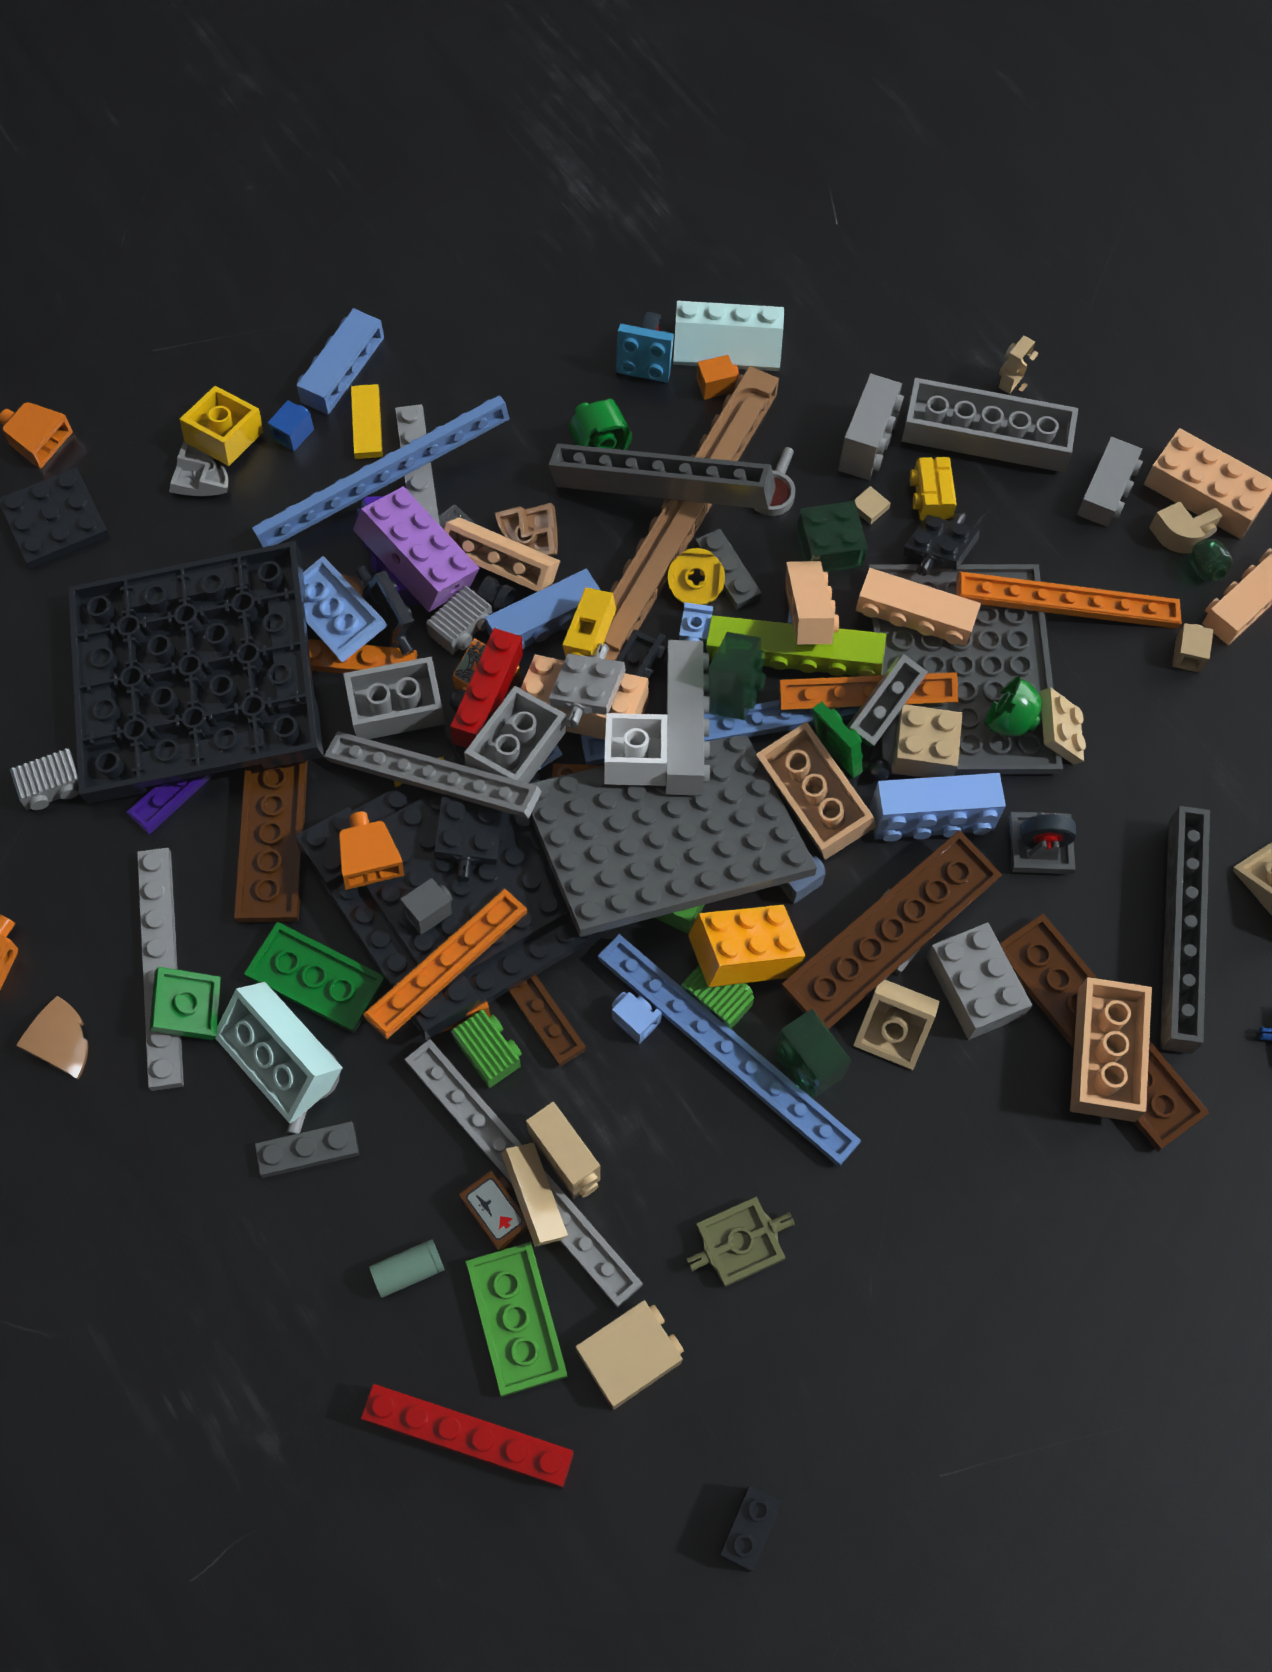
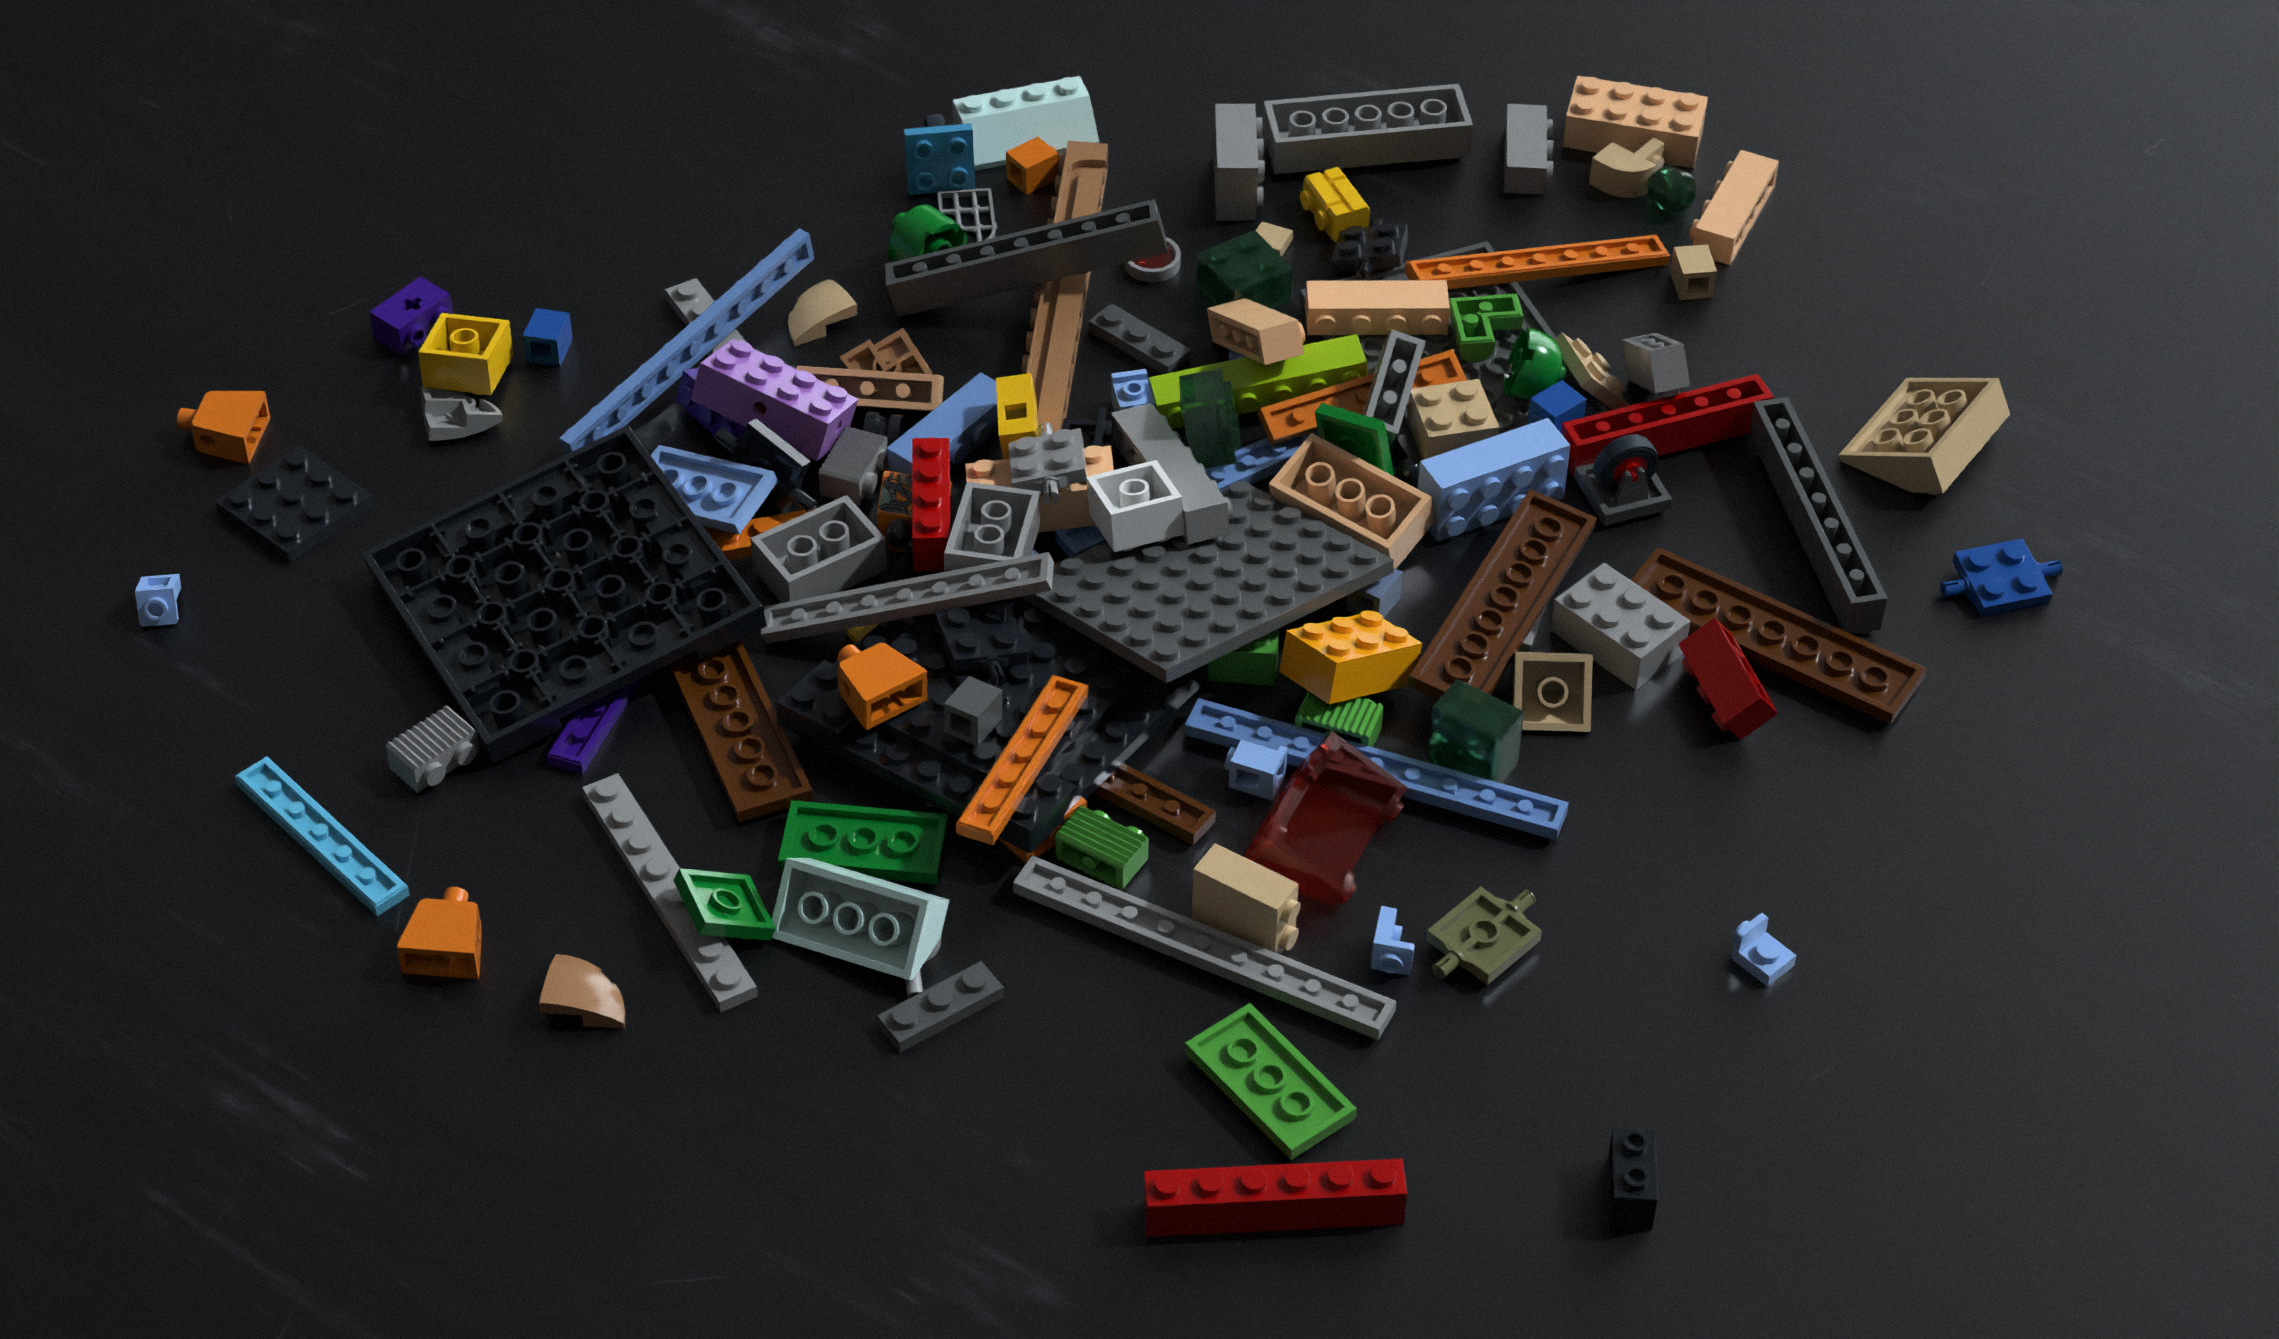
camera: 20 degrees left, 20 degrees down
(202, 372) = (409, 315): none -> dark purple brick
(340, 361) = (574, 259): medium blue brick -> none
(366, 421) = (635, 313): yellow tile -> none
(406, 1268) = (1120, 1072): sand green pin -> none
(495, 1210) = (1193, 989): brick -> none
(500, 461) = (818, 307): none -> tan brick
(534, 1194) = (1232, 950): tan tile -> none
(630, 1353) = (1415, 1071): tan brick -> none
(643, 400) = (973, 193): none -> light grey window
(658, 1092) = (1326, 820): none -> clear red windscreen
(662, 1217) = (1388, 951): none -> light blue bracket
(708, 565) = (1092, 344): yellow plate -> none
(953, 1341) = (1760, 952): none -> light blue bracket
(989, 643) = (1477, 317): none -> bright green brick
(1015, 367) = (1366, 75): tan piece -> none
(1015, 758) = (1557, 403): none -> blue brick
(1040, 1067) = (1726, 680): none -> red brick
(1101, 796) = (1670, 421): none -> red brick
(1111, 1049) = (1794, 631): light nougat brick -> none
(1116, 740) = (1656, 364): none -> light grey brick

